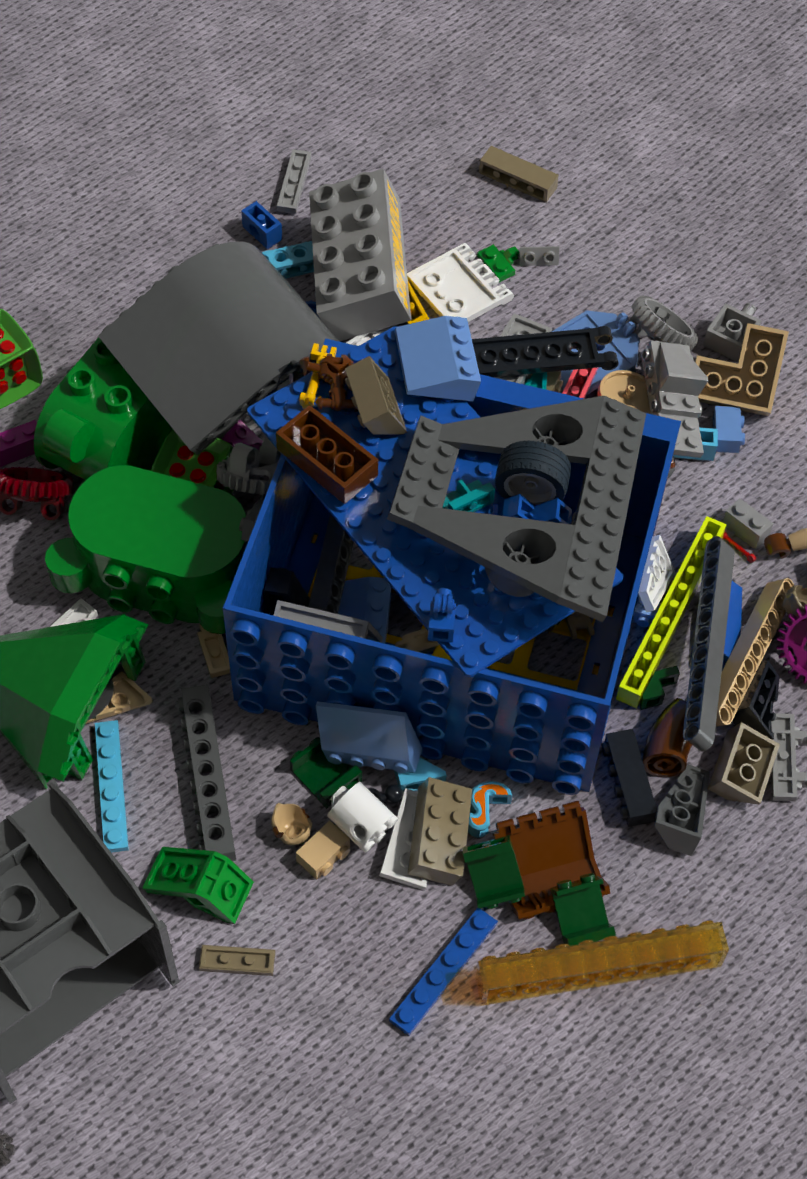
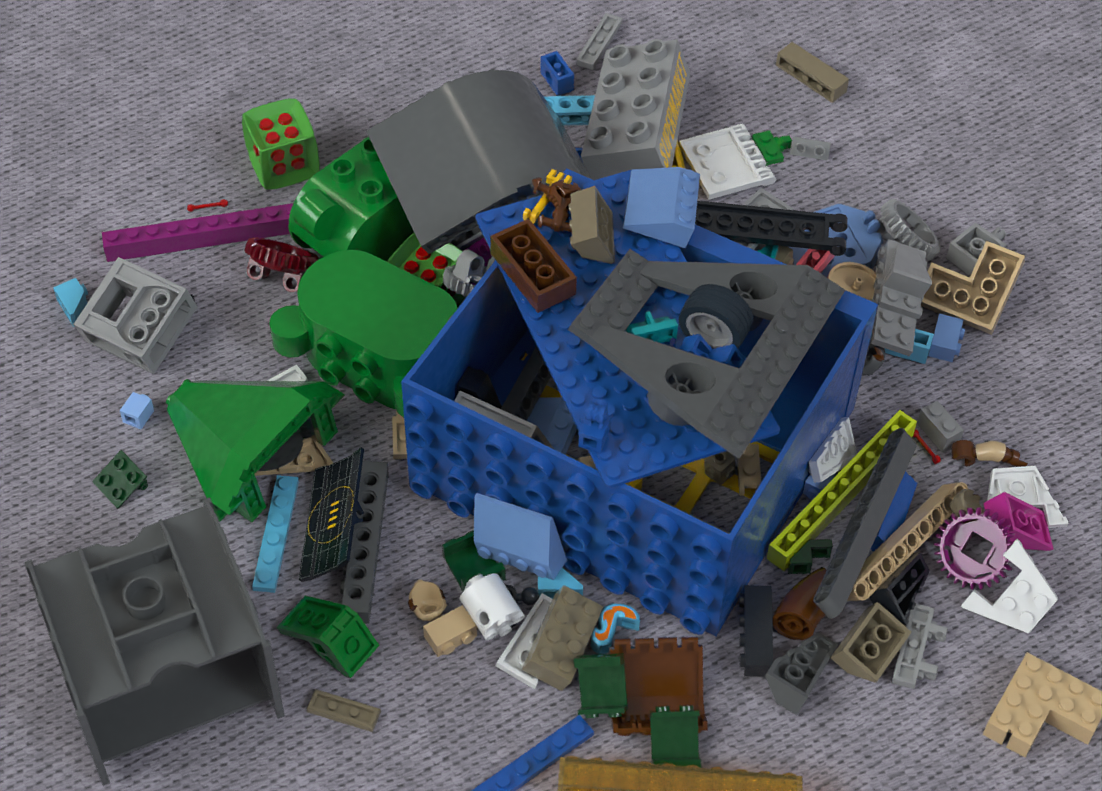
camera: 15 degrees right, 5 degrees down
(168, 757) = (332, 517): none -> black hinge

